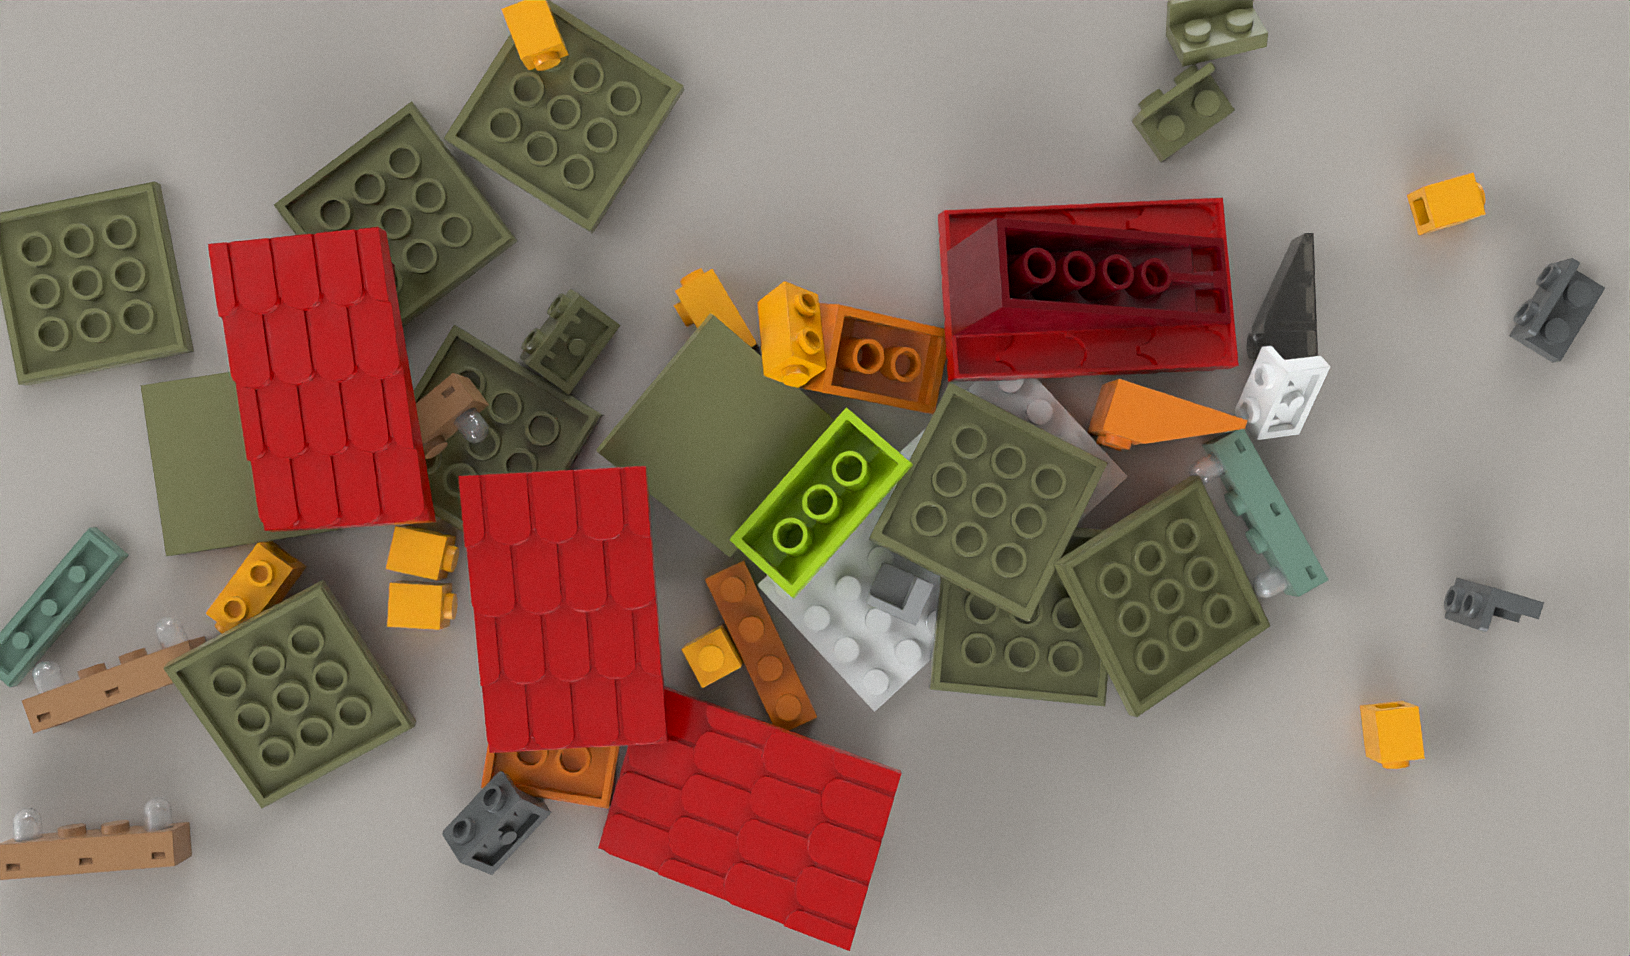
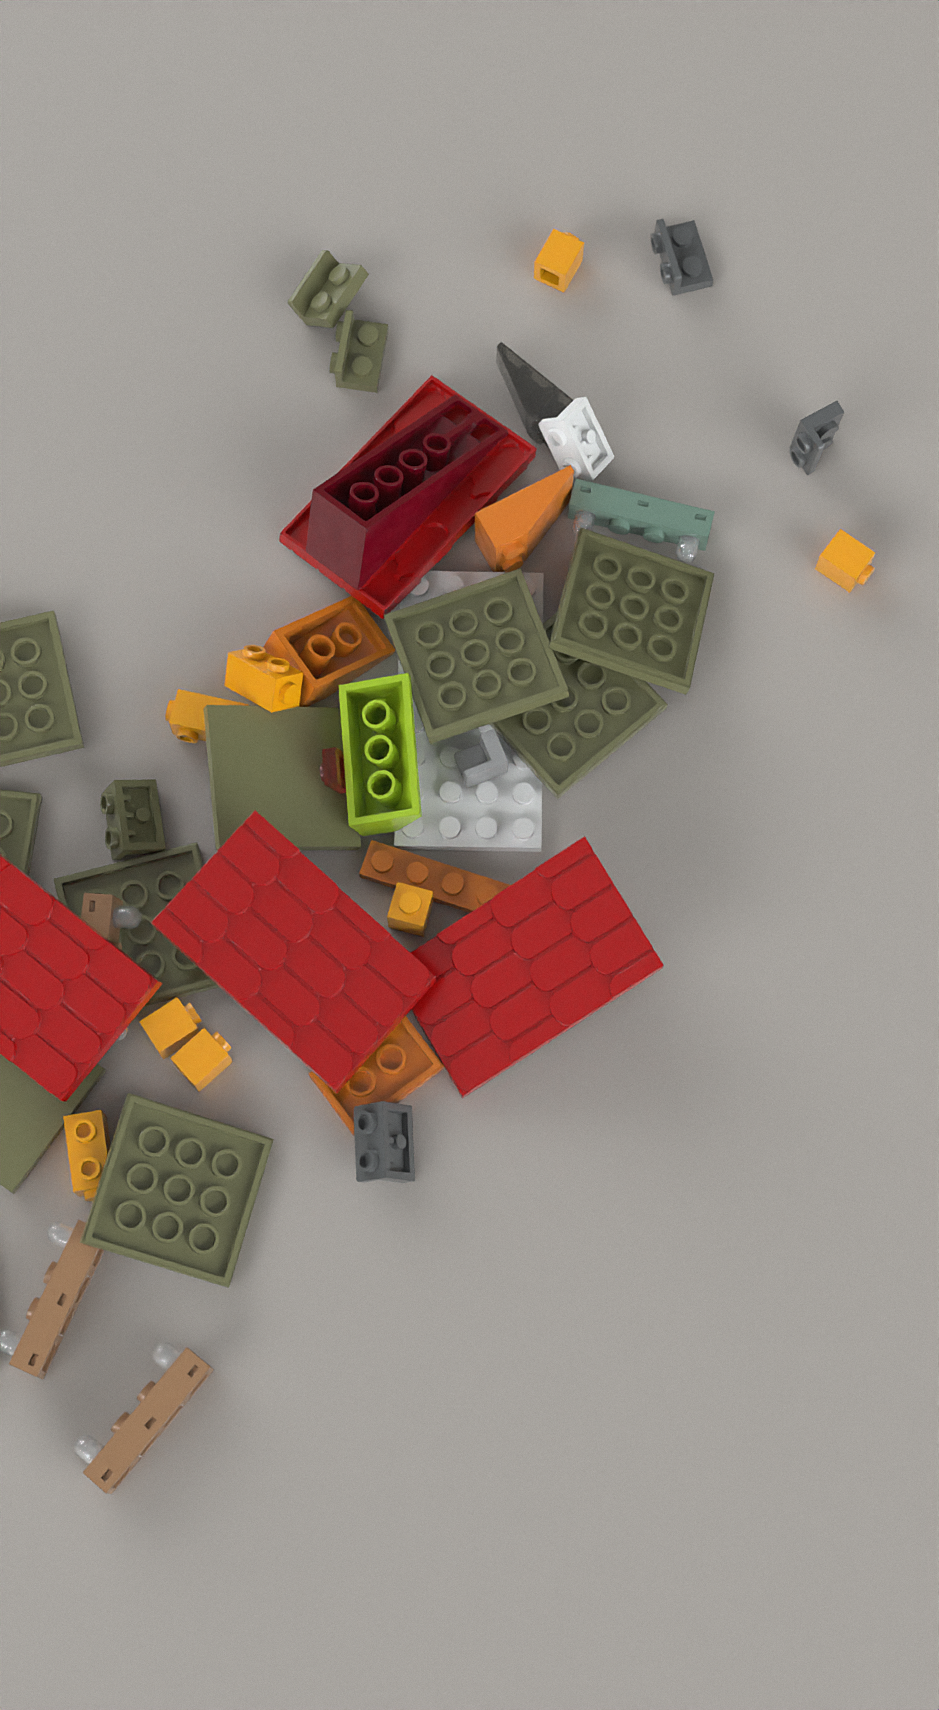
camera: 45 degrees left, 15 degrees down
(767, 476) = (333, 770): none -> clear red plate

